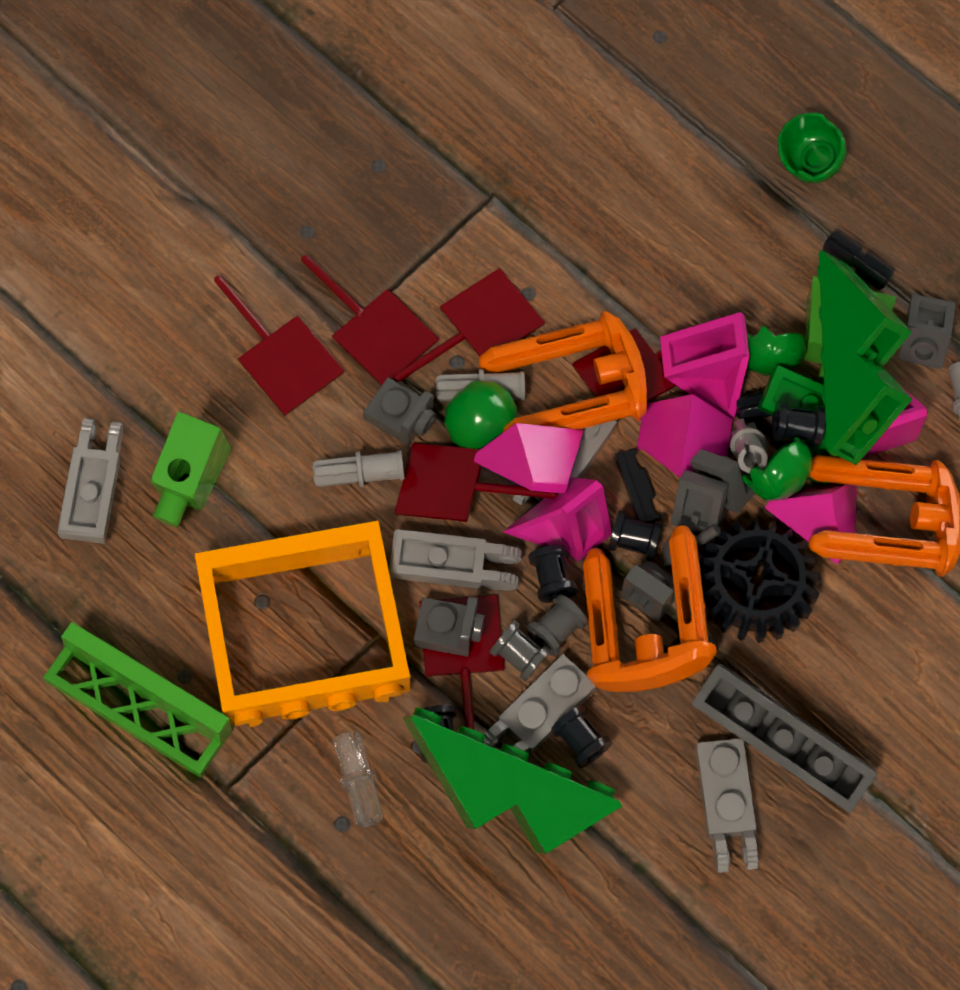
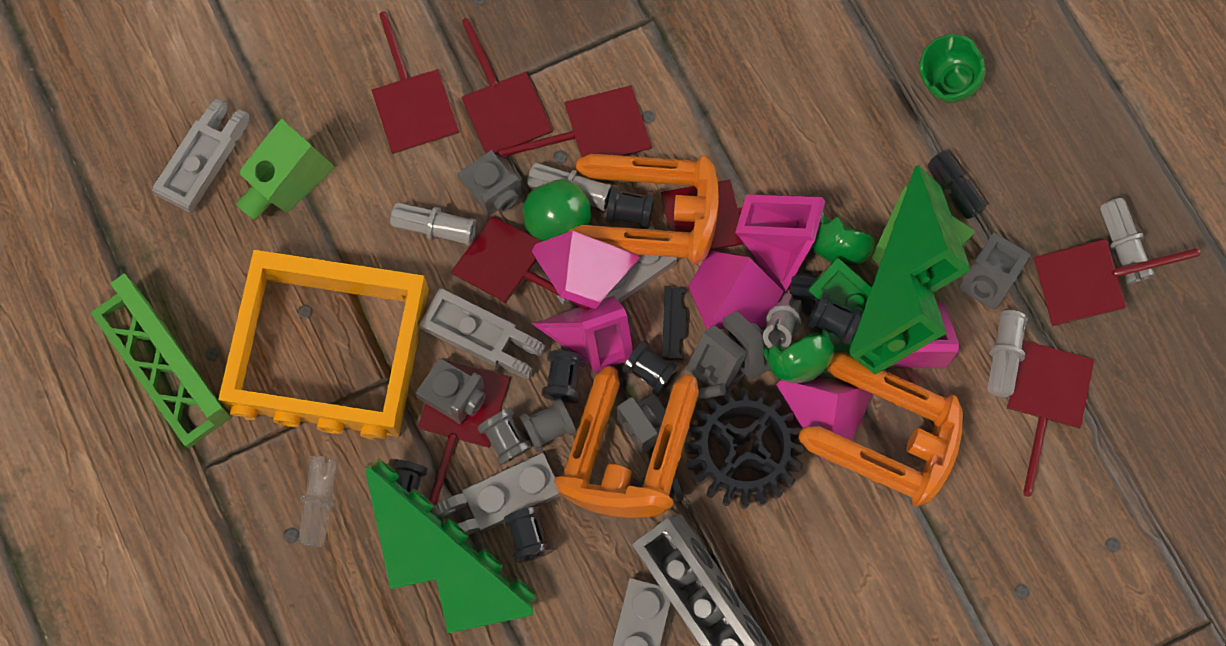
camera: 25 degrees right, 5 degrees up
(550, 386) = (630, 206): none -> black bush

